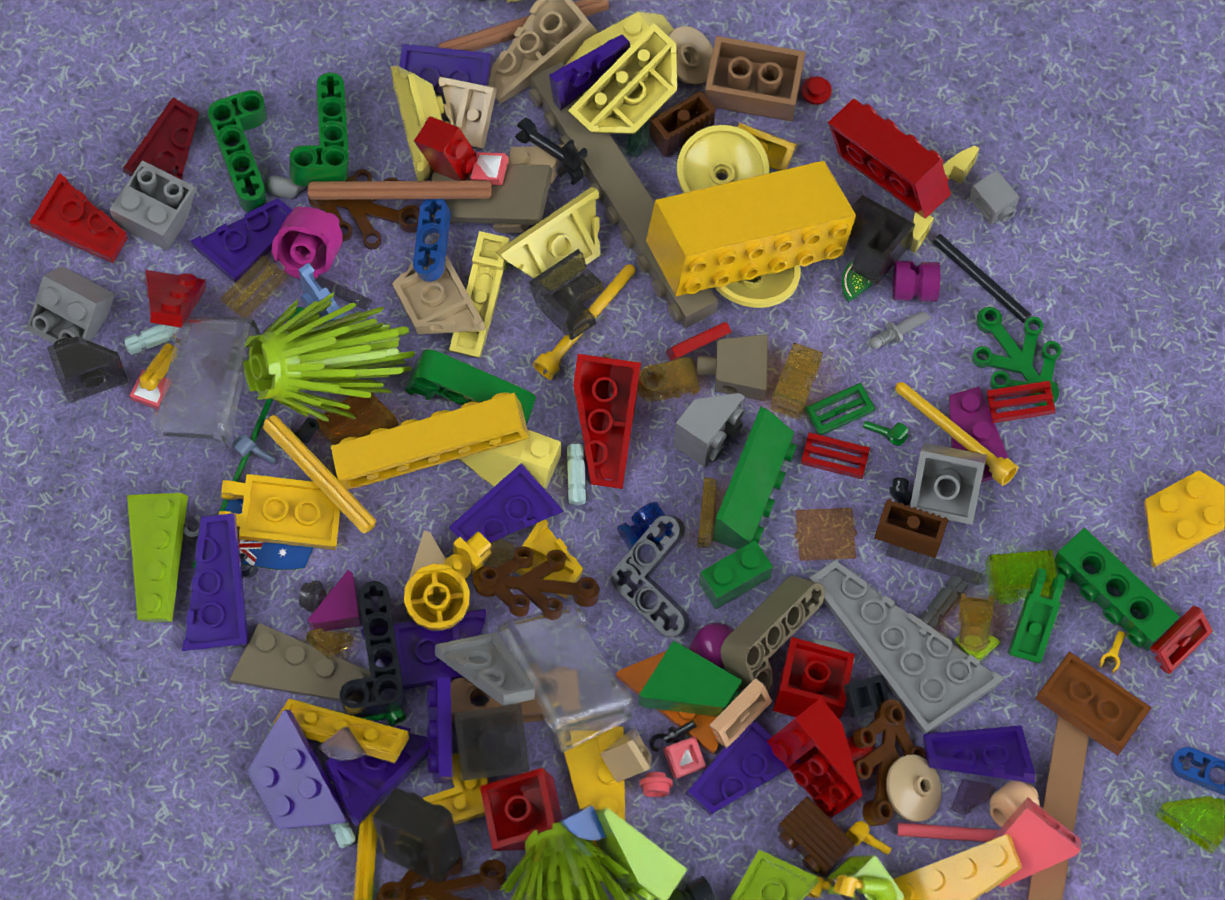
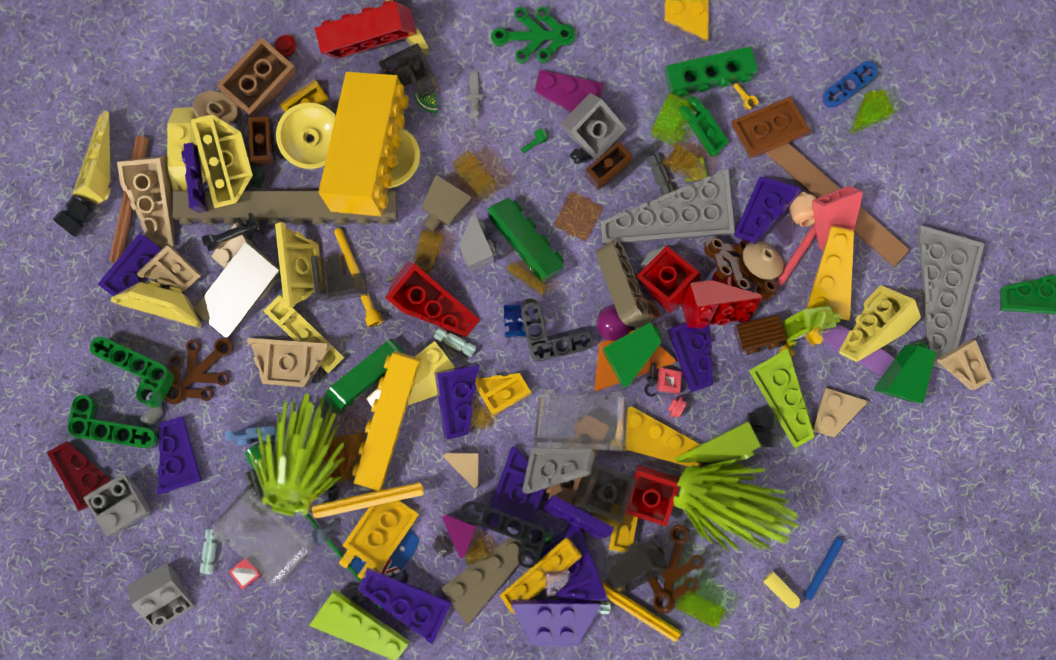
camera: 60 degrees left, 15 degrees up
(76, 221) = (97, 560): red wing -> none
(85, 367) = (209, 611): clear smoke slope -> none
(157, 368) = (234, 562): yellow axle -> none
(172, 296) = (192, 528): red wing -> none
(271, 269) = (206, 453): clear yellow tile -> none
(305, 238) = (205, 422): dark pink brick -> none
(343, 293) = (259, 410): clear smoke bar -> none
(399, 190) = (203, 344): nougat axle -> none
(436, 250) = (237, 341): blue beam -> none
(437, 597) = (494, 473): yellow cylinder -> none
(446, 149) = (195, 299): red brick -> none
(469, 555) = (479, 448): yellow hips -> none
(490, 167) = (222, 279): tile -> none
(497, 582) = (517, 411): reddish brown plant -> none
(584, 824) = (690, 467): tile -> none
(627, 756) = (654, 413): tan slope -> none
(698, 341) = (413, 218): red tile -> none
(735, 574) = (576, 285): green brick -> none
(741, 713) = (667, 333): light nougat tile -> none
(836, 444) = (546, 167): red tile -> none
(848, 418) = (504, 179): green tile -> none
(861, 832) = (770, 306): yellow hand -> none
(865, 695) = (695, 255): black slope -> none
(916, 281) = (451, 64): magenta wheel -> none
(981, 278) = (470, 24): black bar -> none
(1002, 469) = (601, 90): yellow piece -> none
(1020, 390) = (572, 34): red tile -> none
(1178, 636) = (762, 53): red tile -> none

